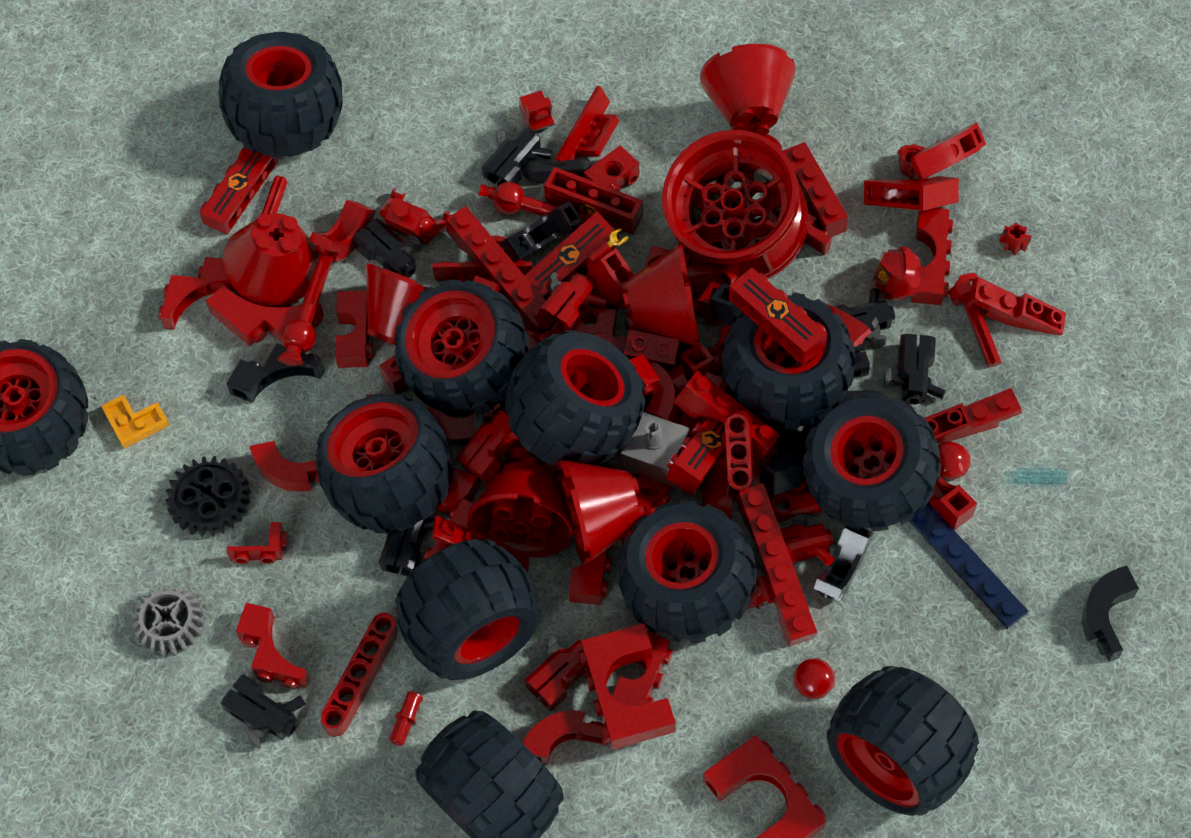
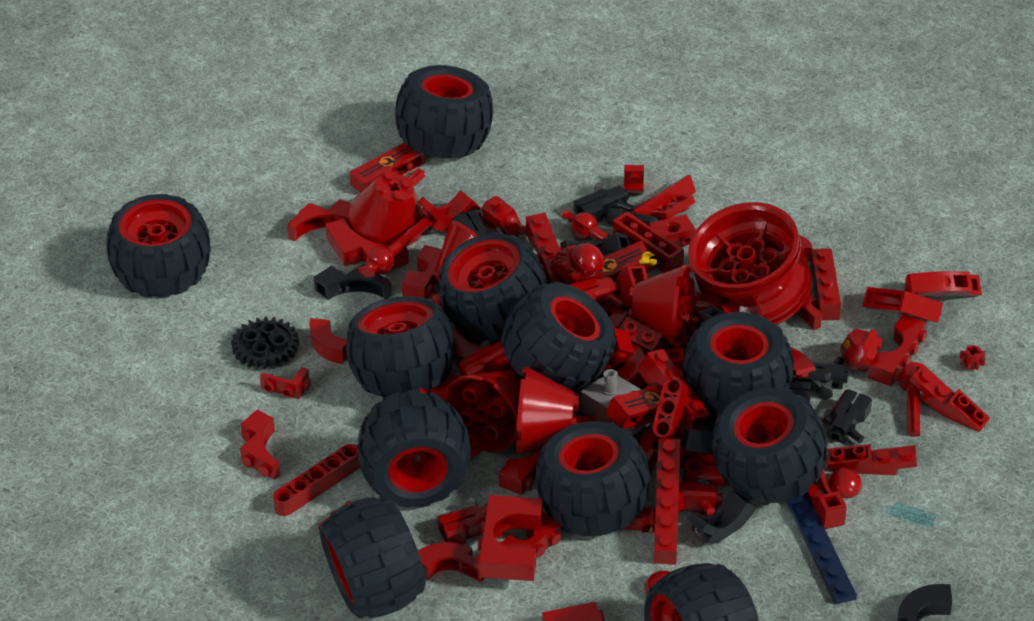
camera: 20 degrees right, 20 degrees down
(132, 426) = (234, 288): light orange plate -> none
(179, 603) = (196, 407): light grey gear -> none
(260, 712) = (232, 480): black piece -> none
(539, 272) = (578, 262): none -> red hair
(749, 85) = (805, 192): red cone -> none
(778, 315) = (736, 320): red brick -> none

